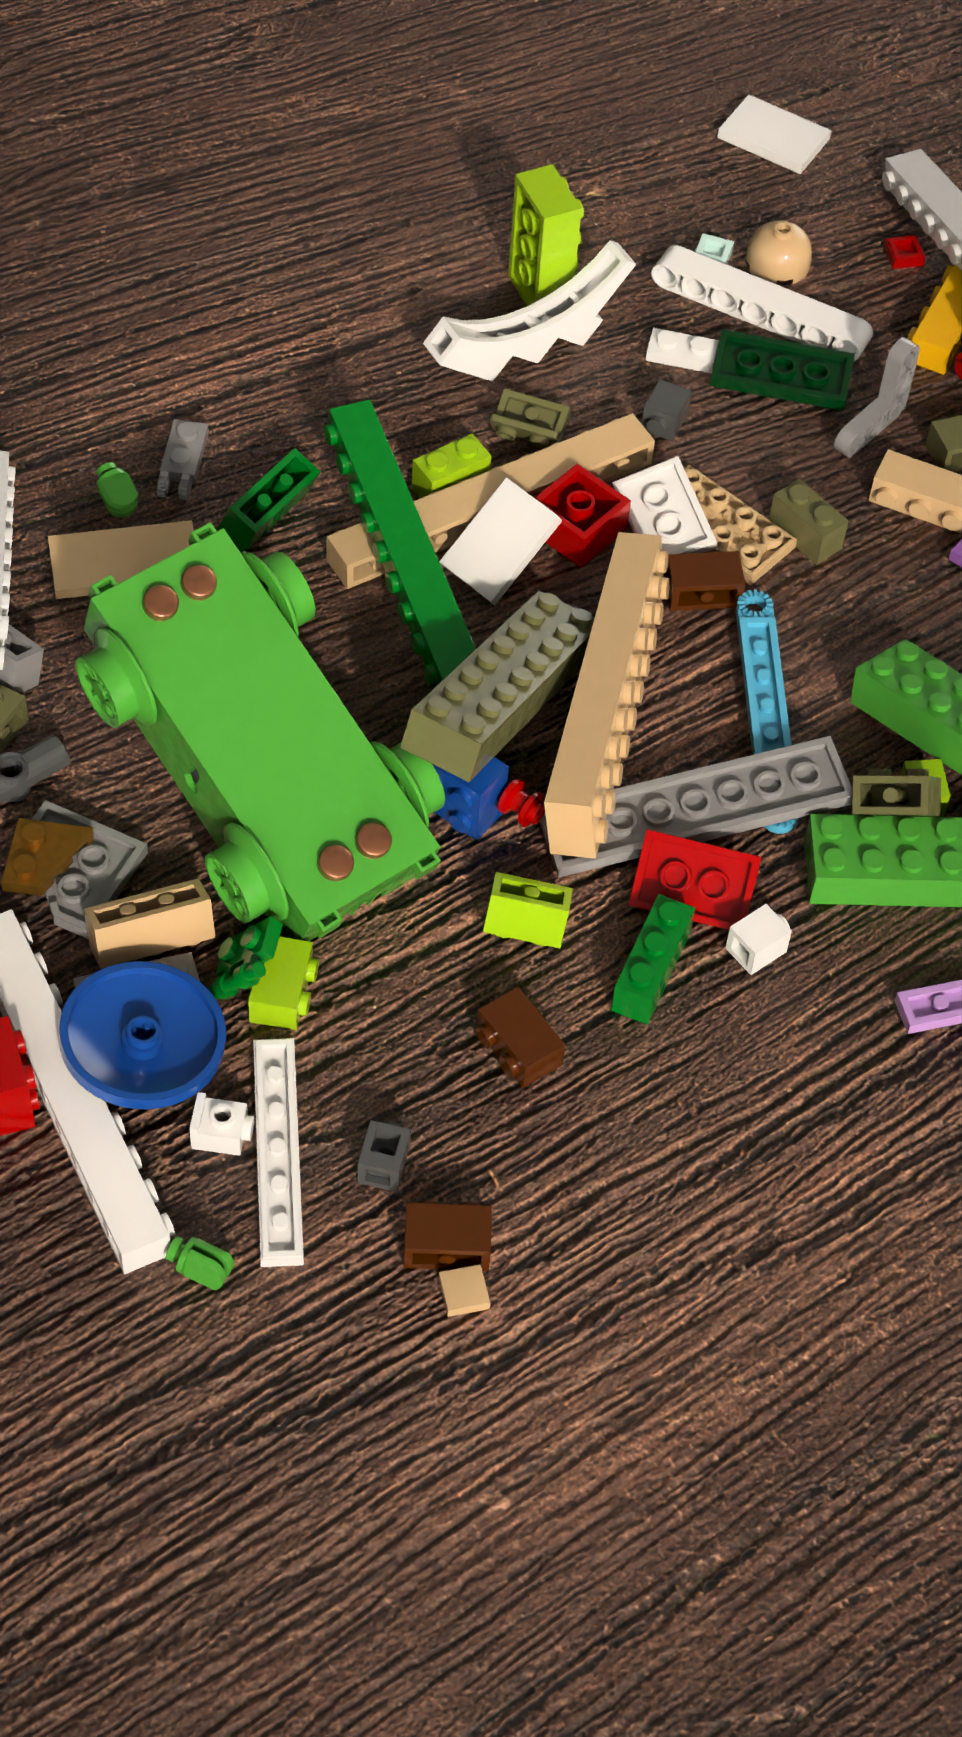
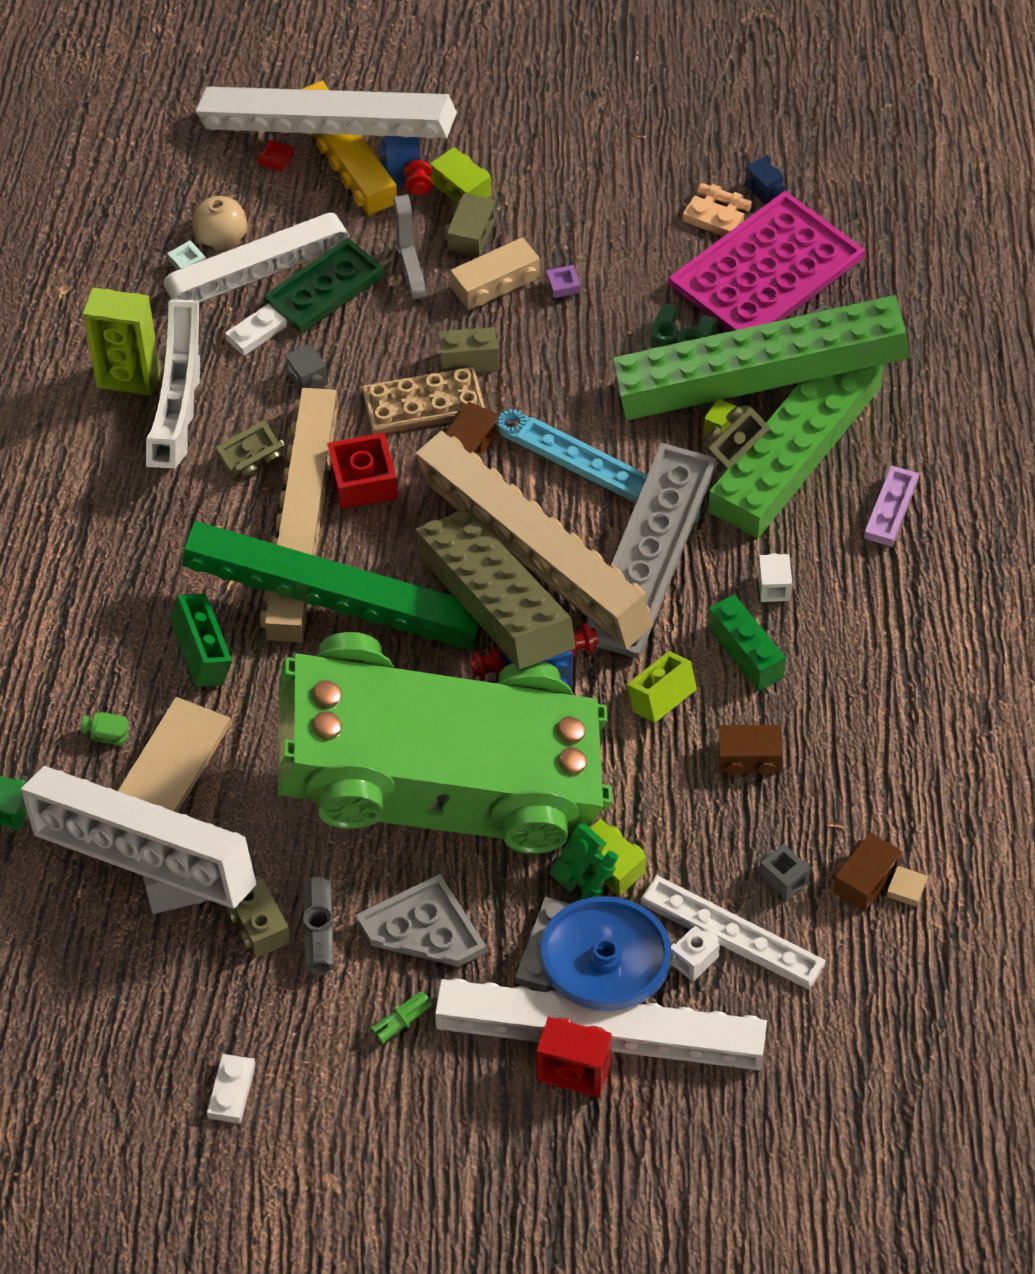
camera: 50 degrees left, 0 degrees up
(41, 853) = (404, 939): pearl gold wing -> none
(149, 923) = (511, 905): tan brick -> none
(182, 457) = (105, 673): light grey hinge -> none
(200, 1261) = (789, 1017): bright green arm -> none
(449, 465) = (260, 513): lime brick -> none
(500, 541) = (351, 524): white tile -> none
(667, 507) = (404, 419): white tile -> none
(697, 874) = (705, 581): red plate -> none
(774, 134) = (104, 158): white tile -> none

